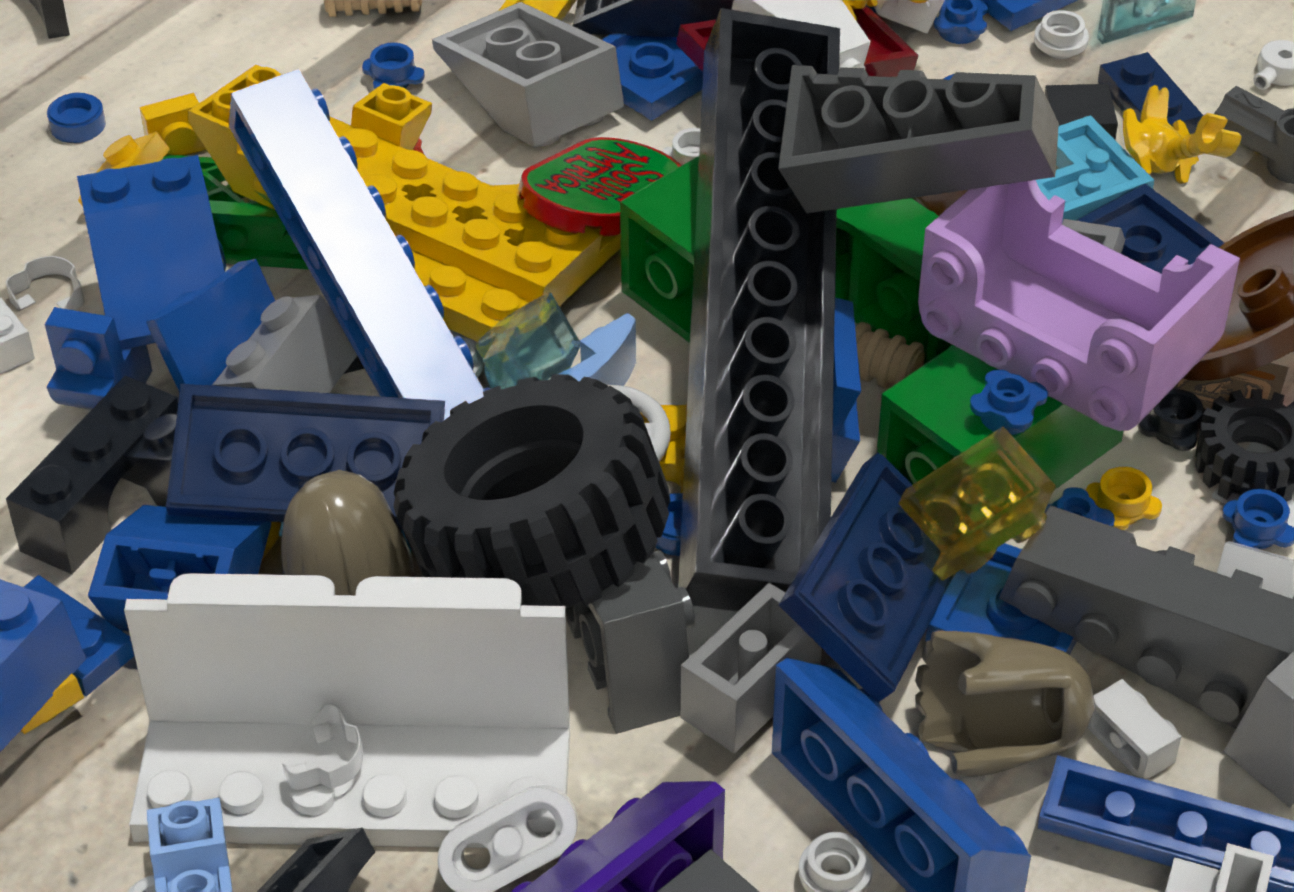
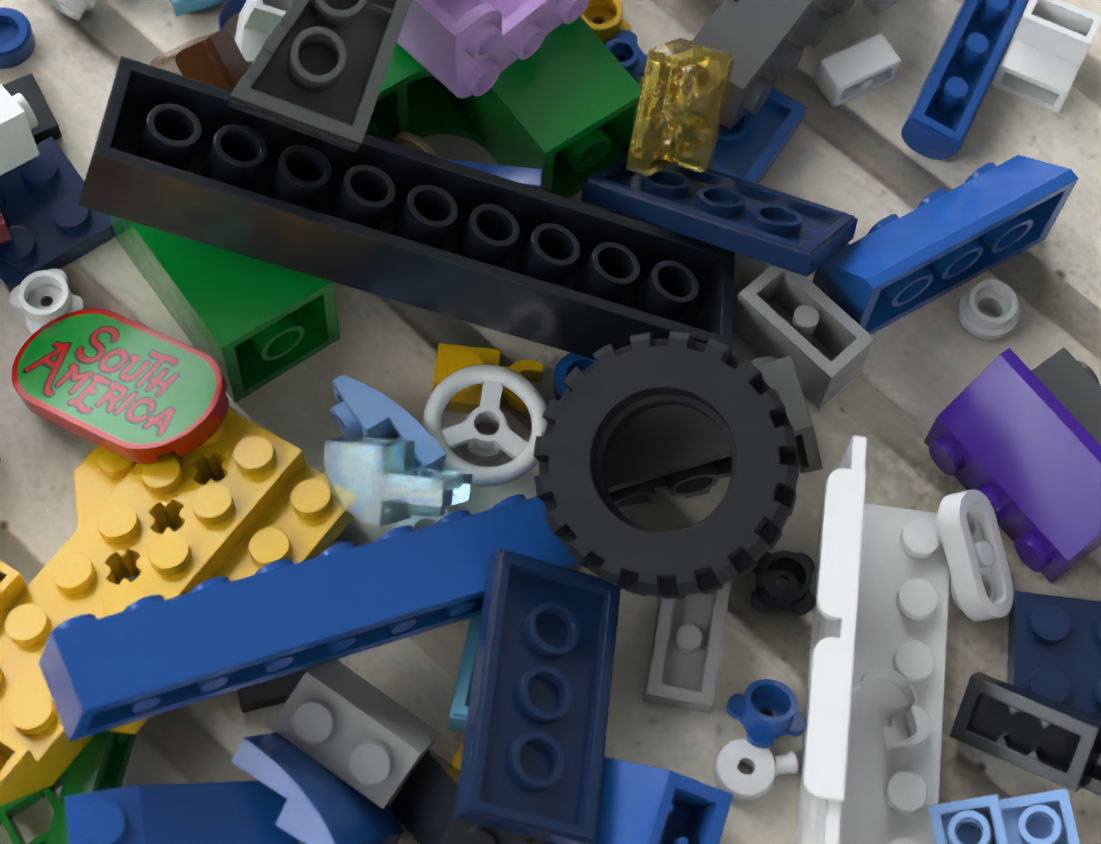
camera: 90 degrees left, 20 degrees up
(343, 532) = (670, 674): dark tan hair -> none
(1000, 700) = (852, 145): dark tan hair -> none
(1008, 401) = (583, 61): blue plate -> none

